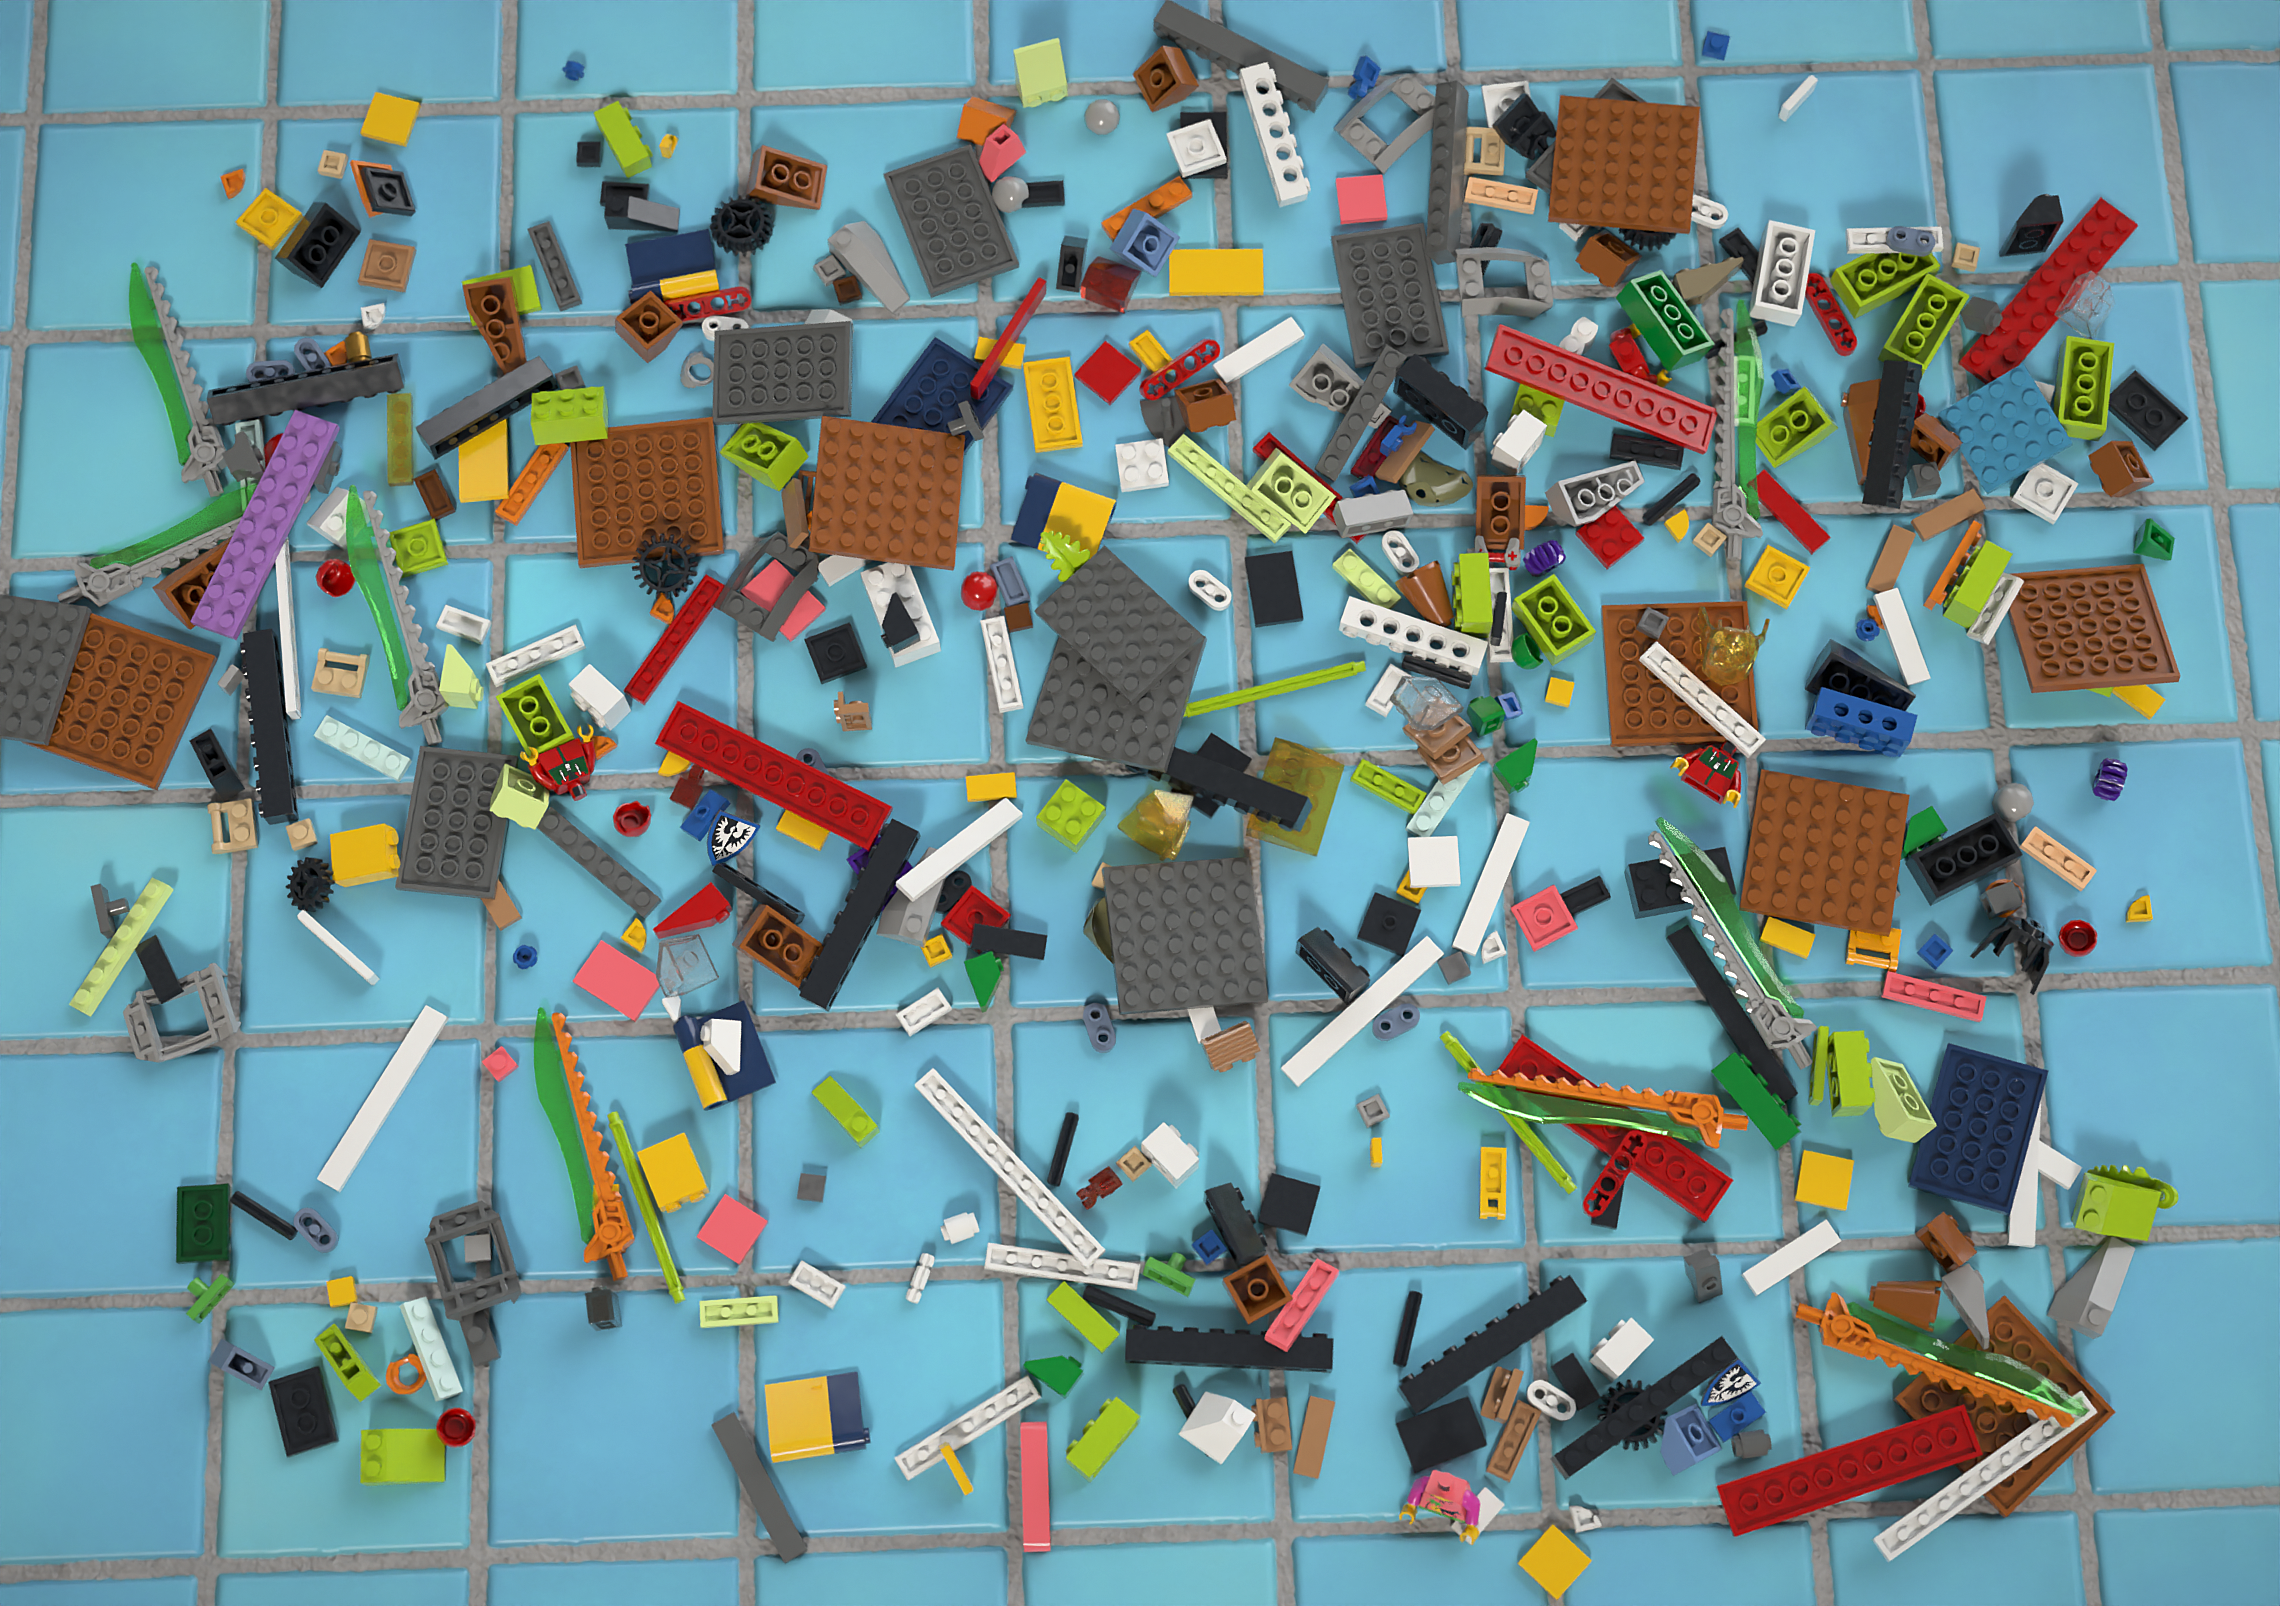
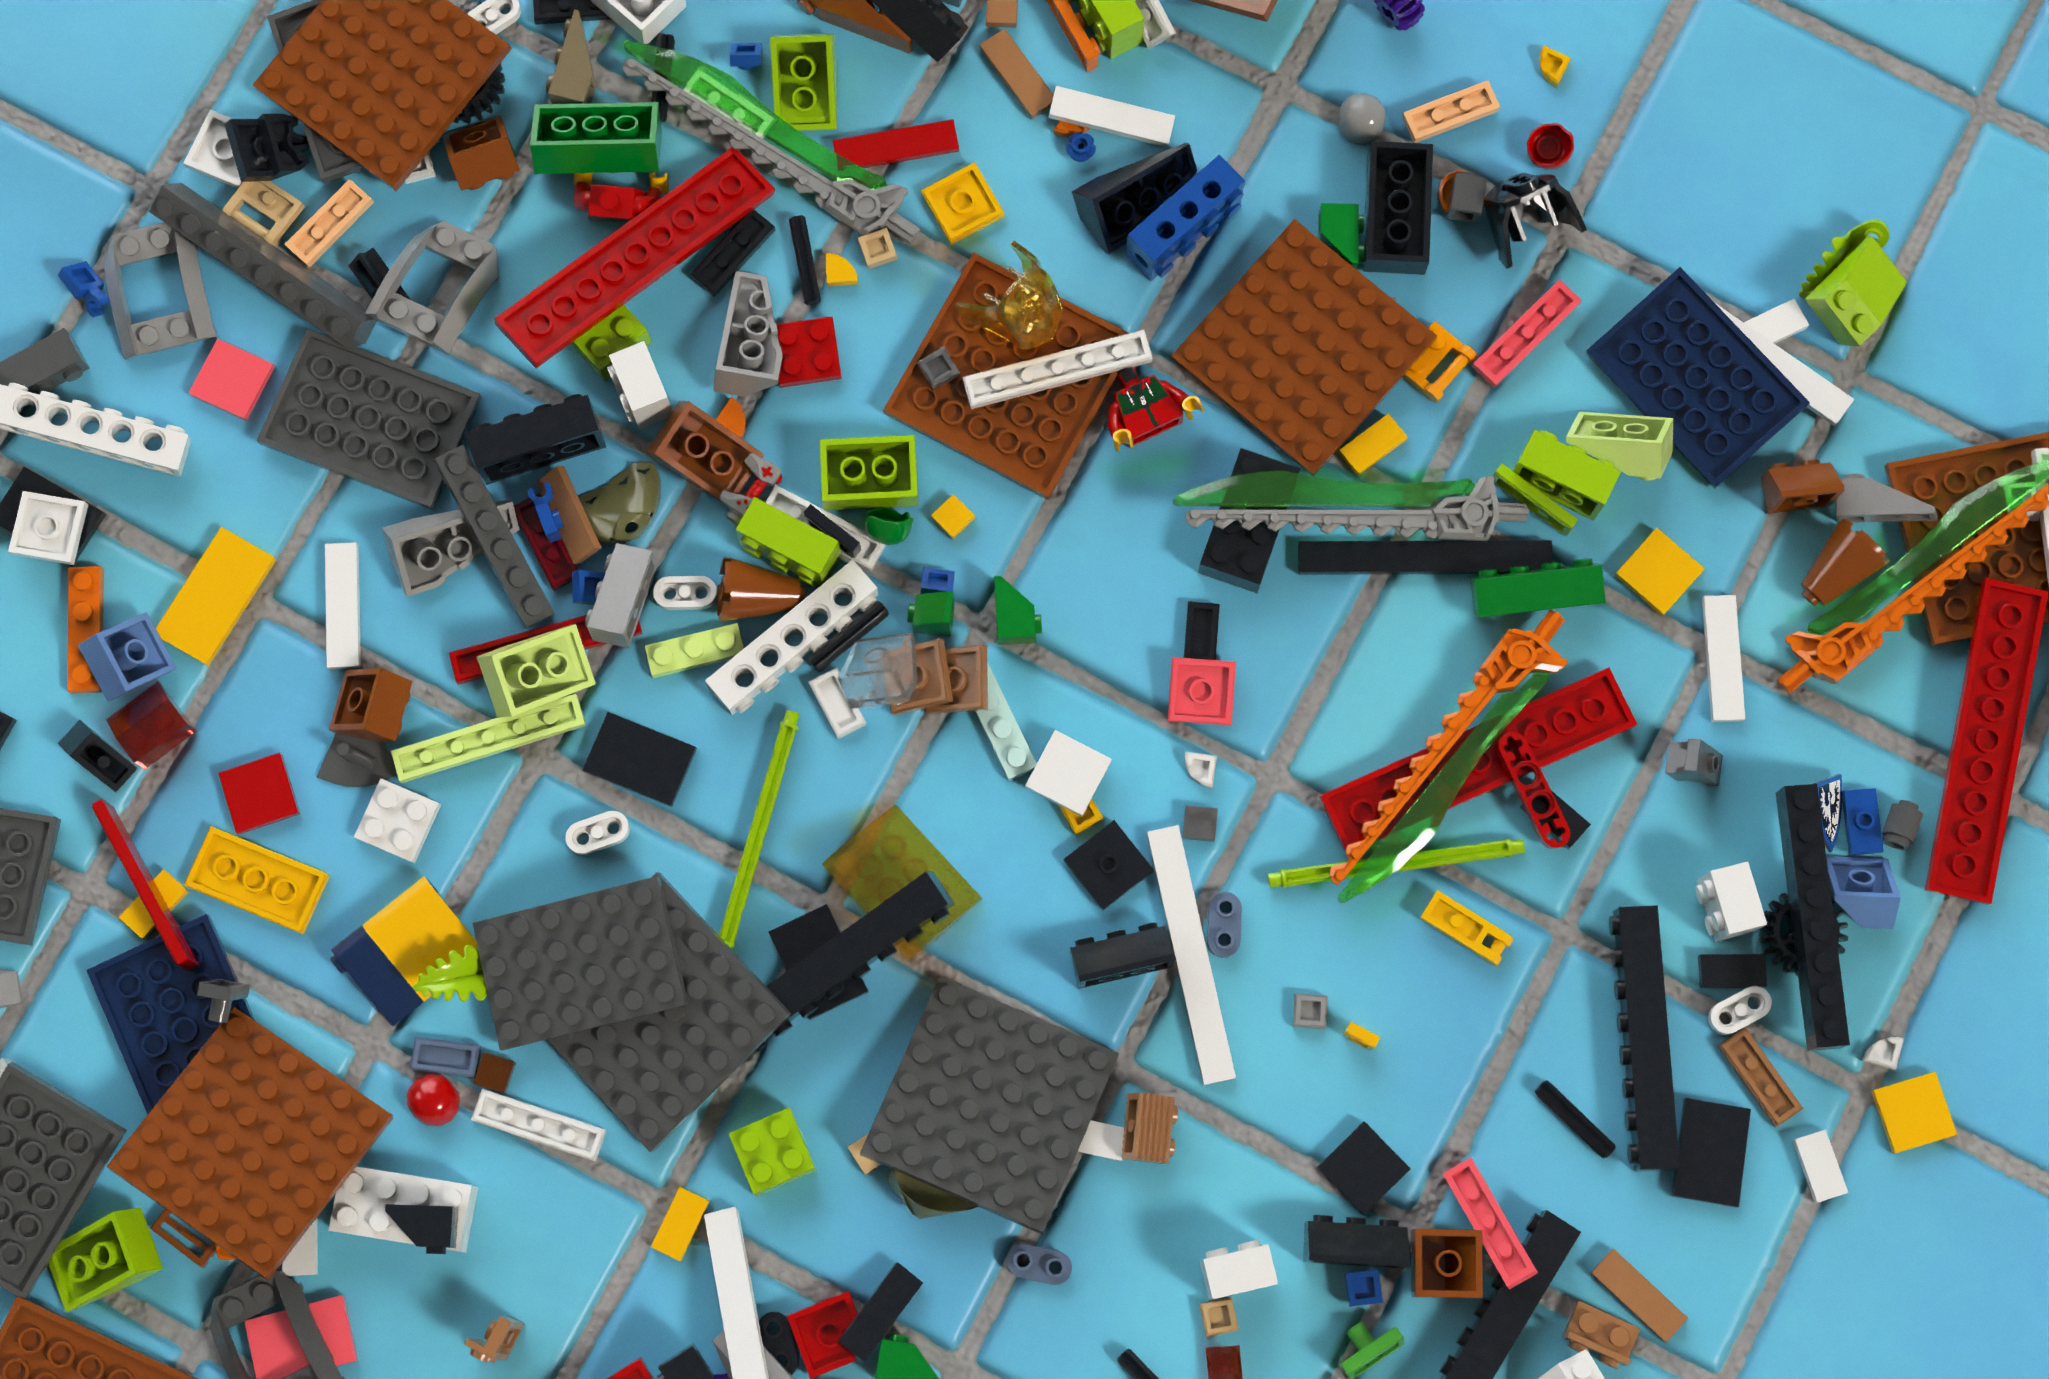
camera: 60 degrees left, 5 degrees up
(794, 513) = (204, 1266): medium nougat tile -> none
(835, 653) = (405, 1314): black tile -> none
(1150, 352) = (269, 729): yellow tile -> none
(1160, 823) = (845, 1055): clear yellow piece -> none
(1178, 366) = (303, 708): red beam -> none
(1388, 787) = (949, 770): lime tile -> none
(1446, 1497) = (1790, 1189): torso -> none
(1490, 884) = (1128, 725): white tile -> none
(1501, 1394) = (1706, 1059): medium nougat bracket -> none
(1544, 558) = (791, 438): dark purple gear -> none
(1581, 337) = (556, 242): white brick -> none
(1935, 951) = (1478, 301): blue plate -> none
(2093, 1290) = (1932, 371): light grey wedge -> none

